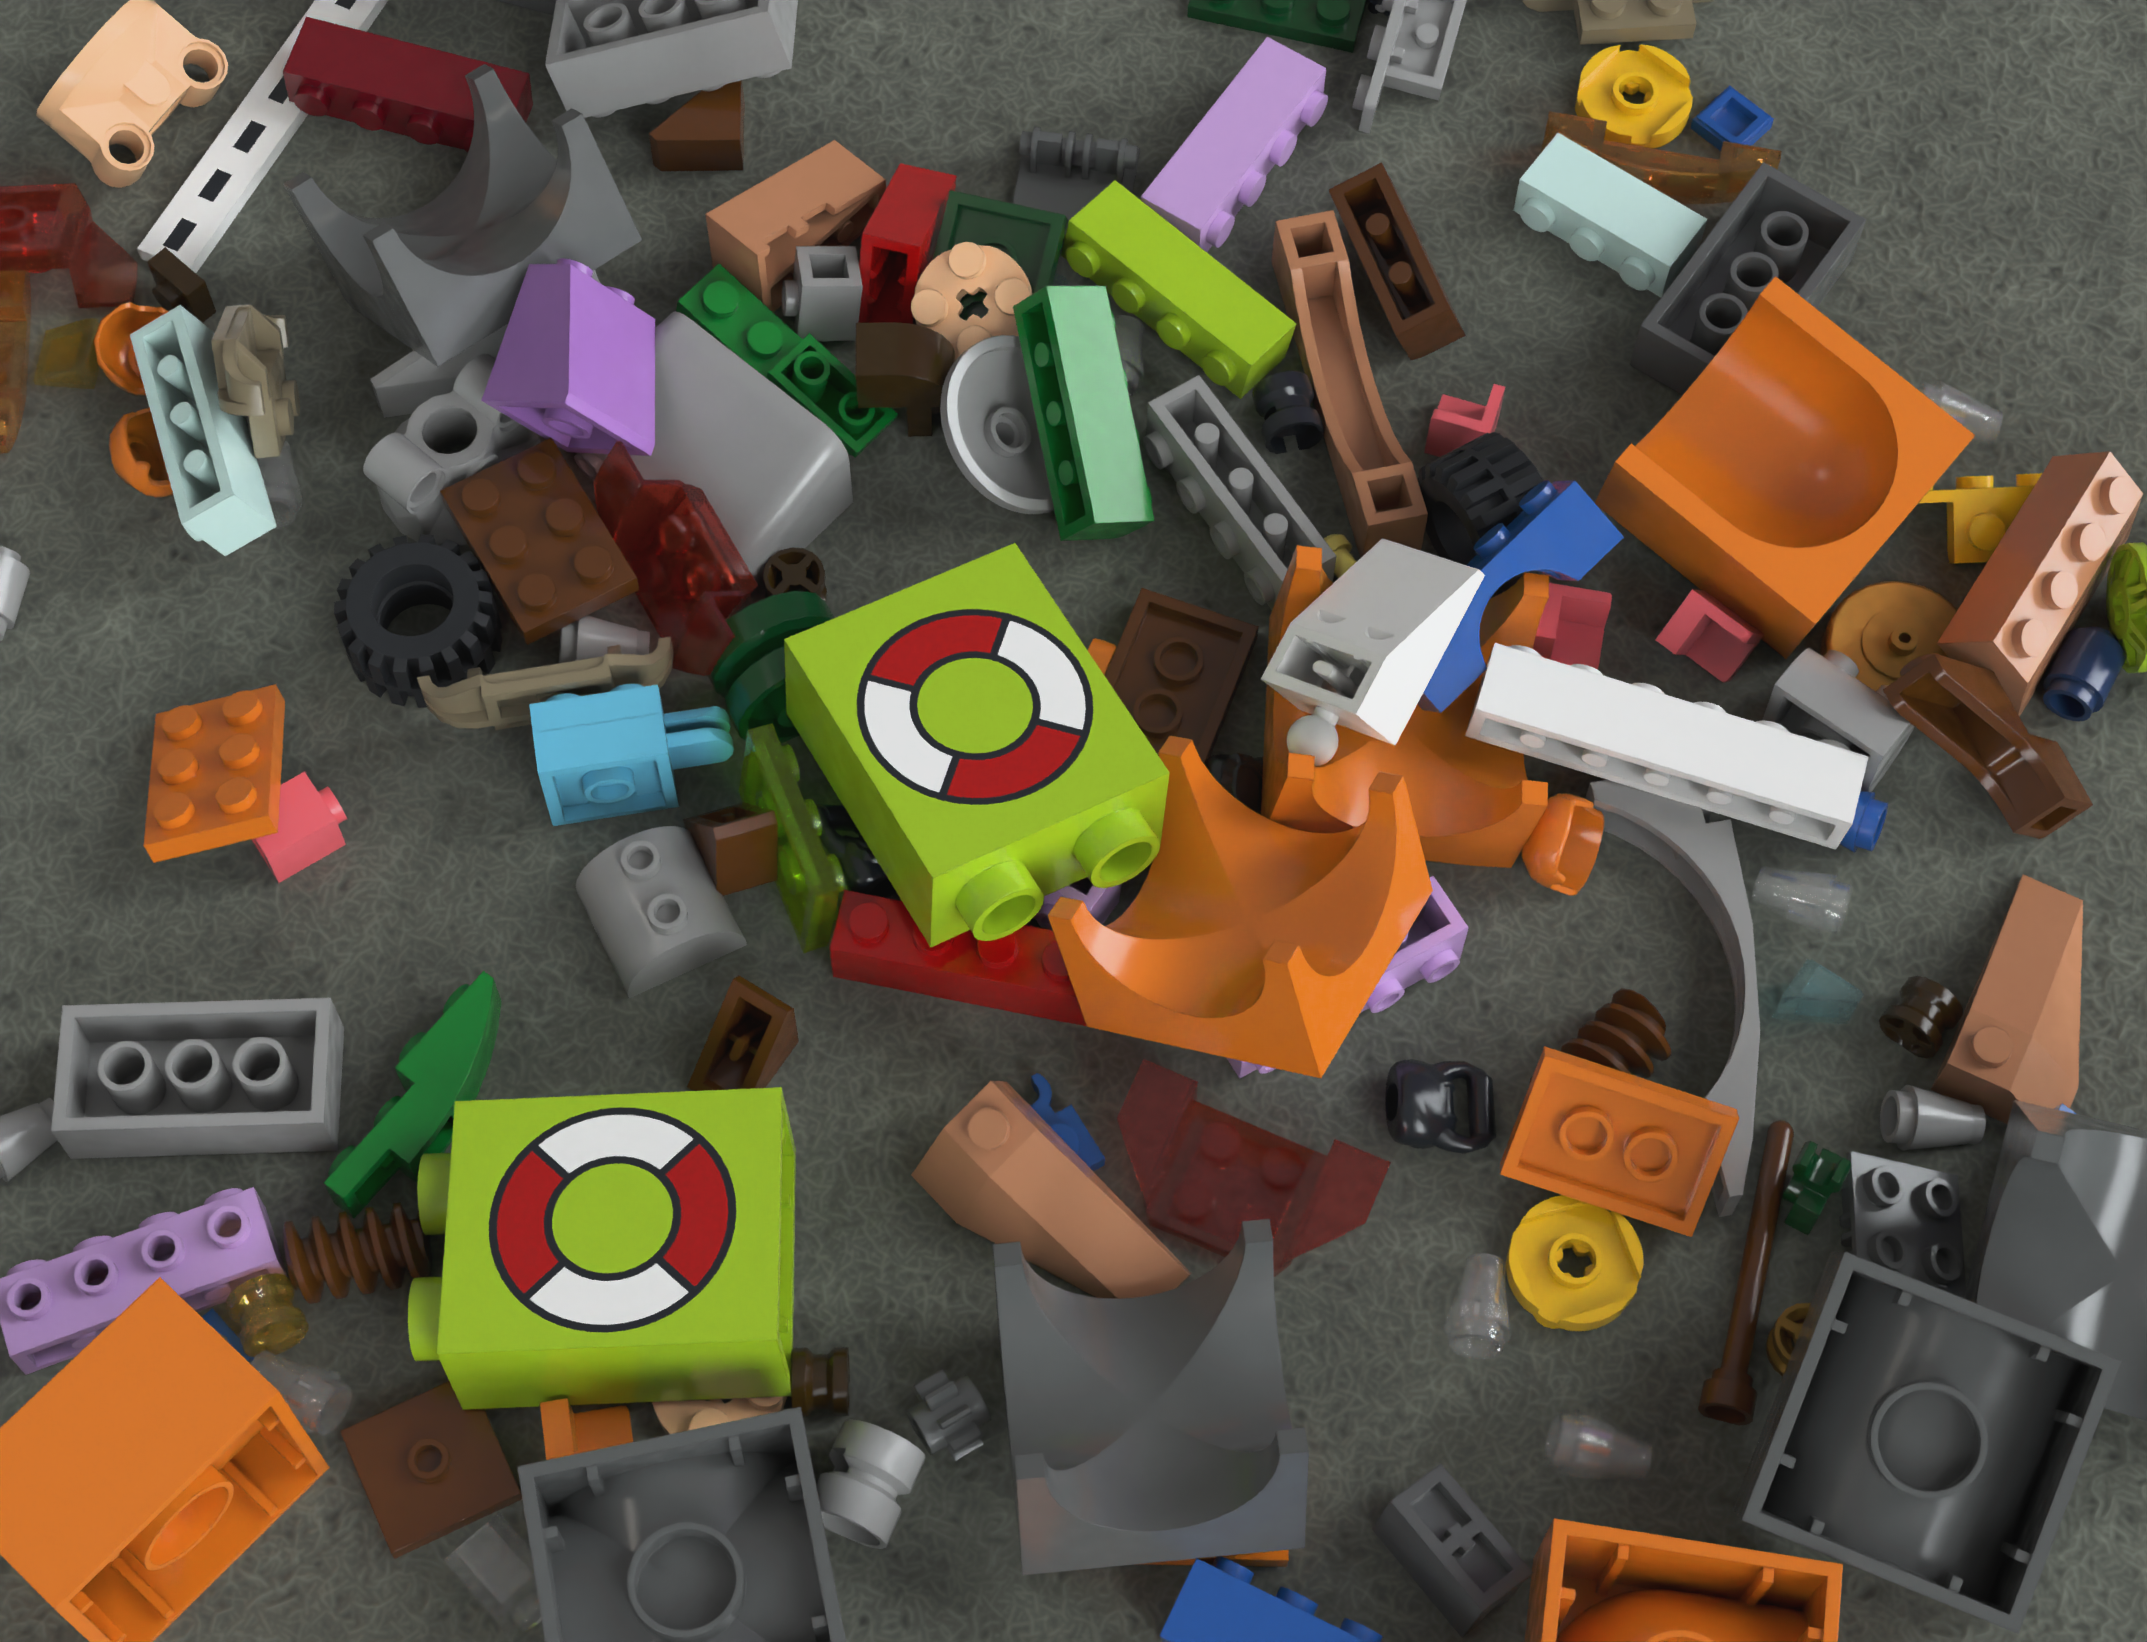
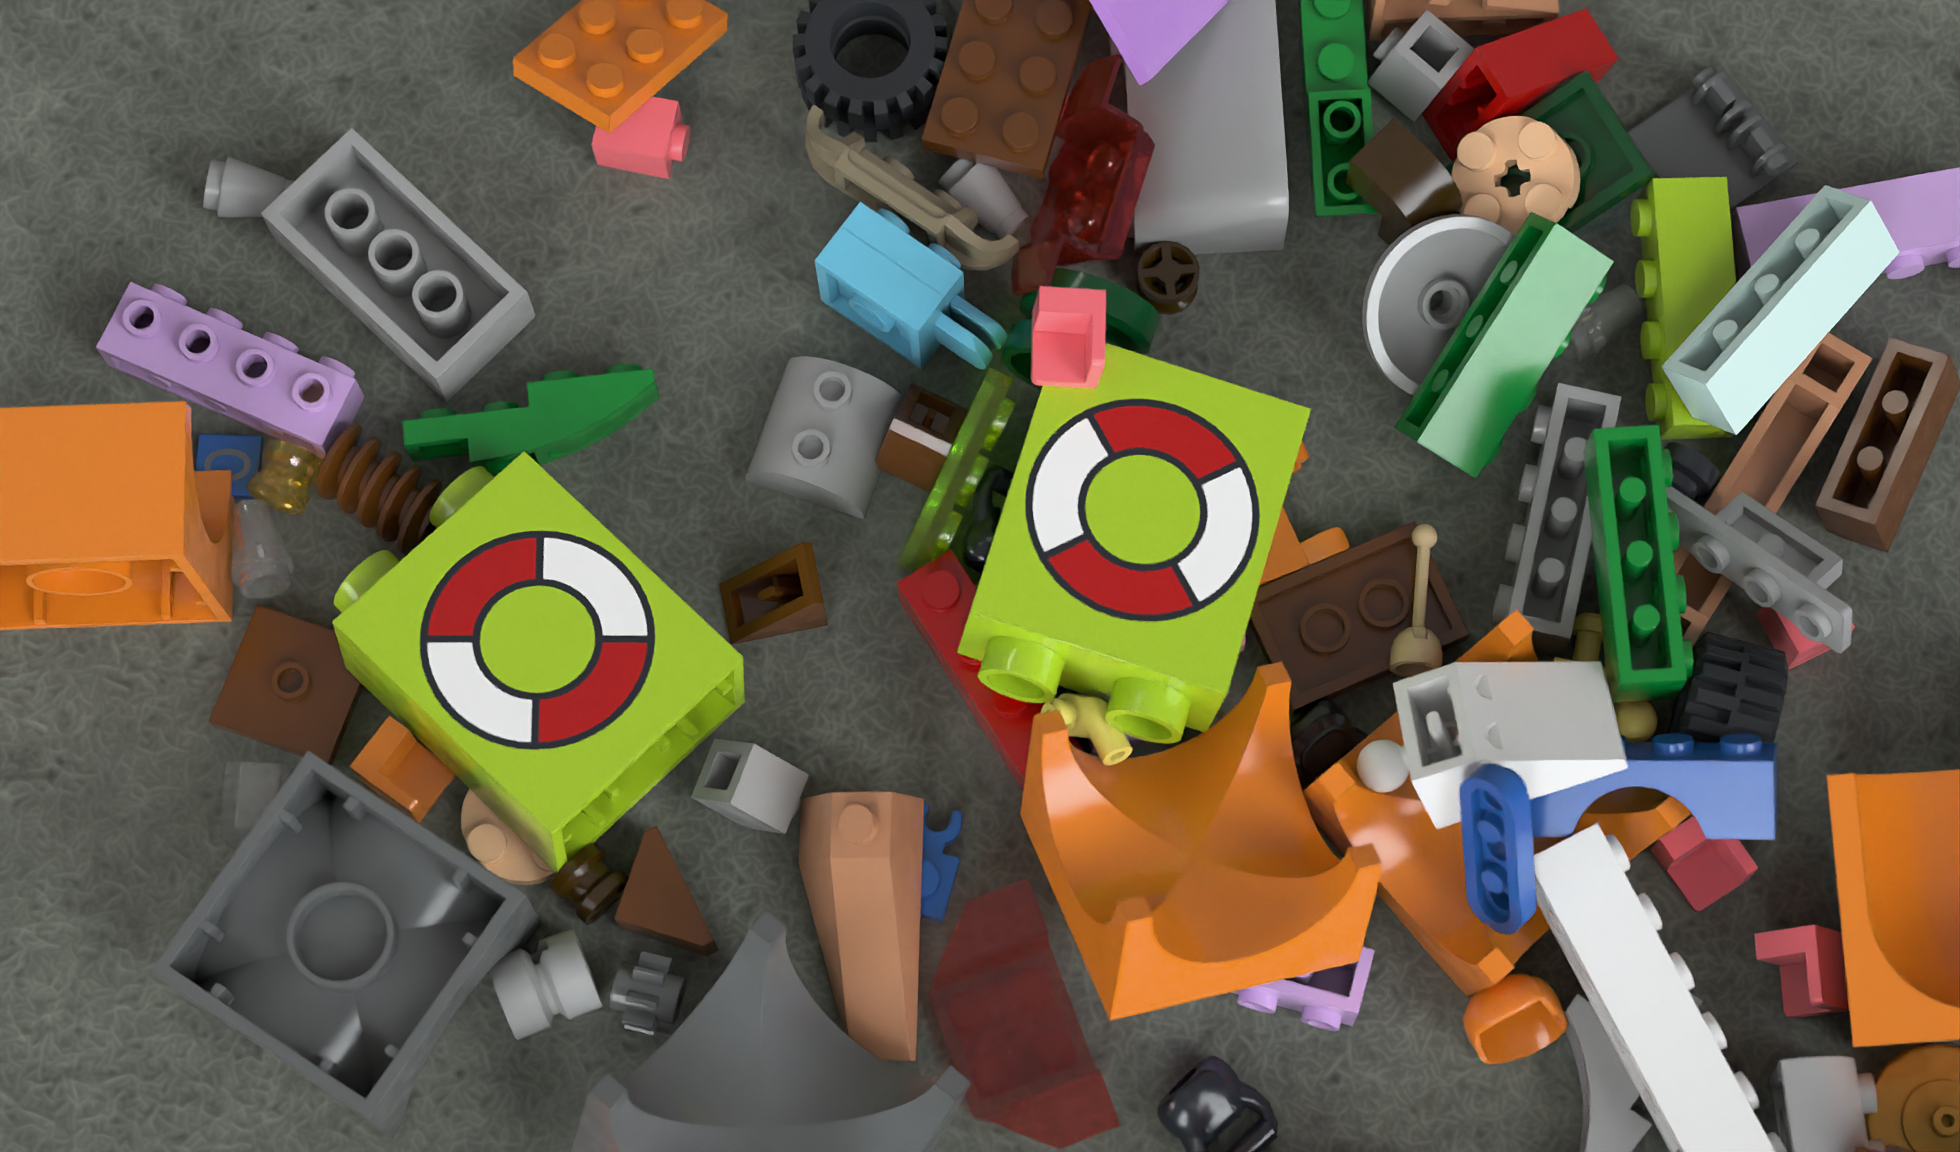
camera: 50 degrees right, 10 degrees up
(801, 631) = (1068, 337): none -> coral panel
(868, 1194) = (750, 786): none -> light grey brick
(891, 1339) = (659, 902): none -> reddish brown slope
(1102, 903) = (1086, 719): none -> light yellow arm
(1237, 663) = (1417, 647): none -> tan hinge
(1247, 222) = (1781, 309): none -> light aqua brick
(1332, 455) = (1636, 563): none -> green brick
(1400, 394) = (1770, 562): none -> light grey bracket
(1459, 729) = (1498, 847): none -> blue plate

